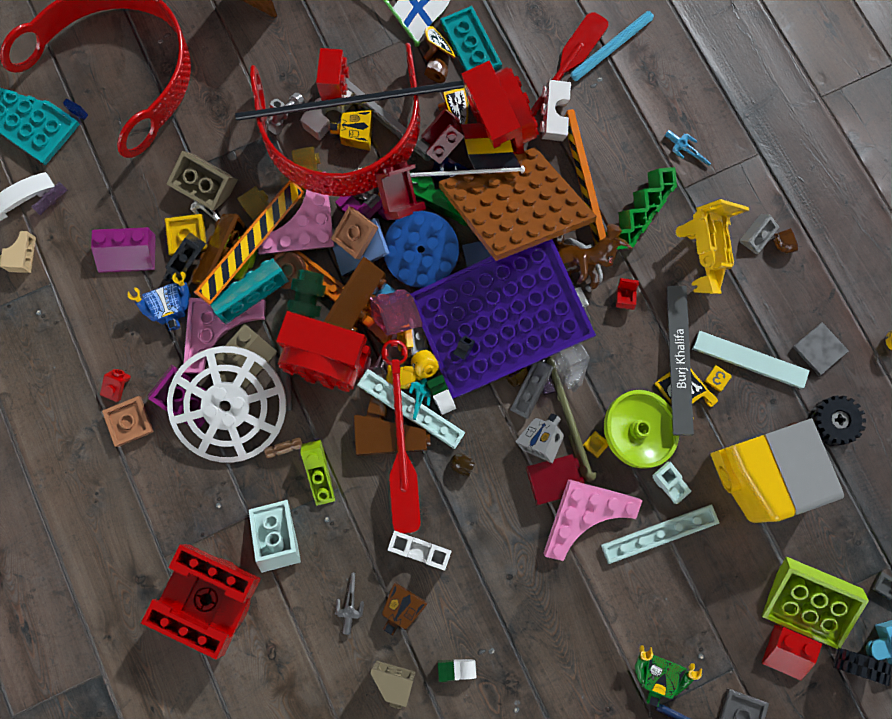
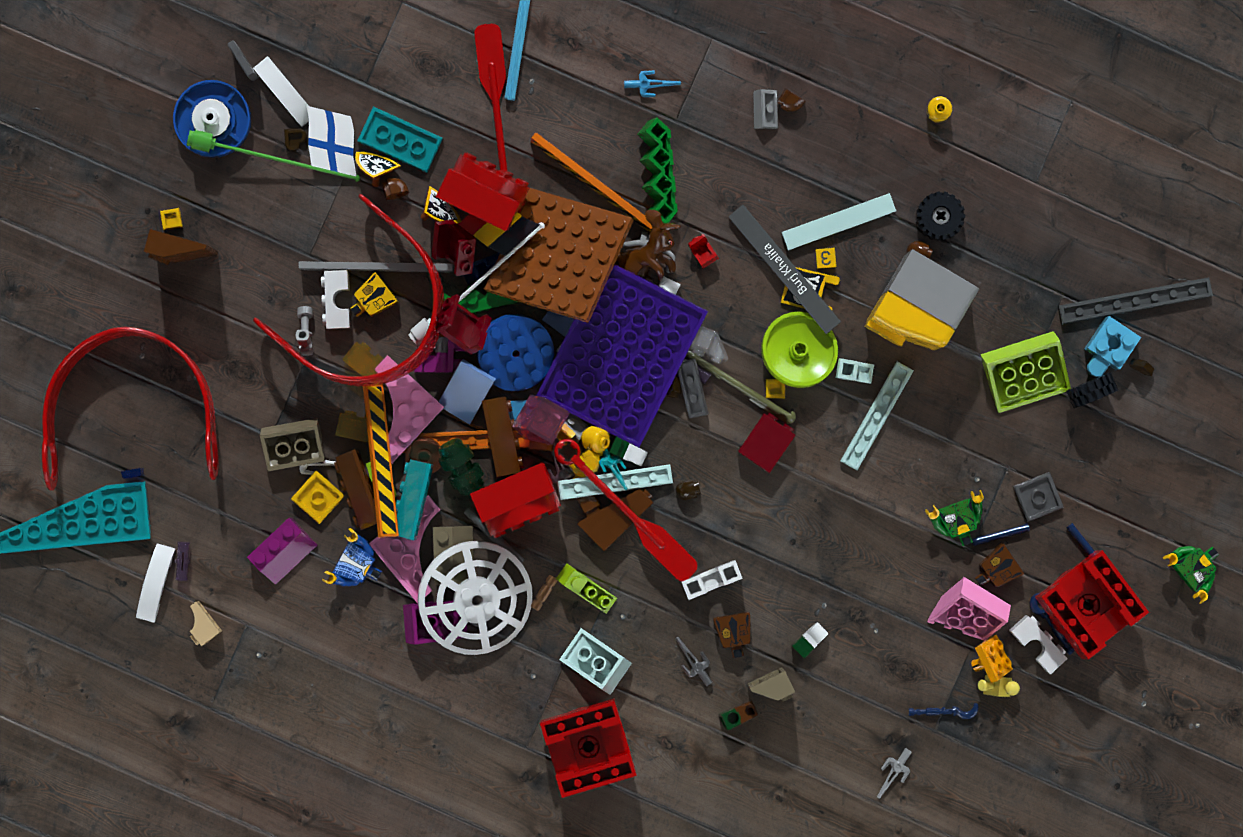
camera: 40 degrees left, 10 degrees up
(113, 384) = (373, 657): red bracket -> none
(127, 421) = (409, 674): nougat plate -> none
(184, 257) = (337, 516): black hinge -> none
(332, 74) = (324, 274): red brick -> none
(346, 681) = (738, 715): none -> leg
(349, 100) = (364, 287): black piece -> none
(354, 232) = (454, 385): nougat plate -> none
(464, 347) = (616, 403): black piece -> none
(542, 438) = (731, 420): light grey torso -> none
(553, 125) = (528, 159): white arch -> none
(581, 509) = (804, 447): bright pink plate -> none
(712, 241) = (751, 157): yellow container -> none
(791, 652) = (1037, 422): red slope -> none
(820, 349) = (885, 167): flat silver tile -> none

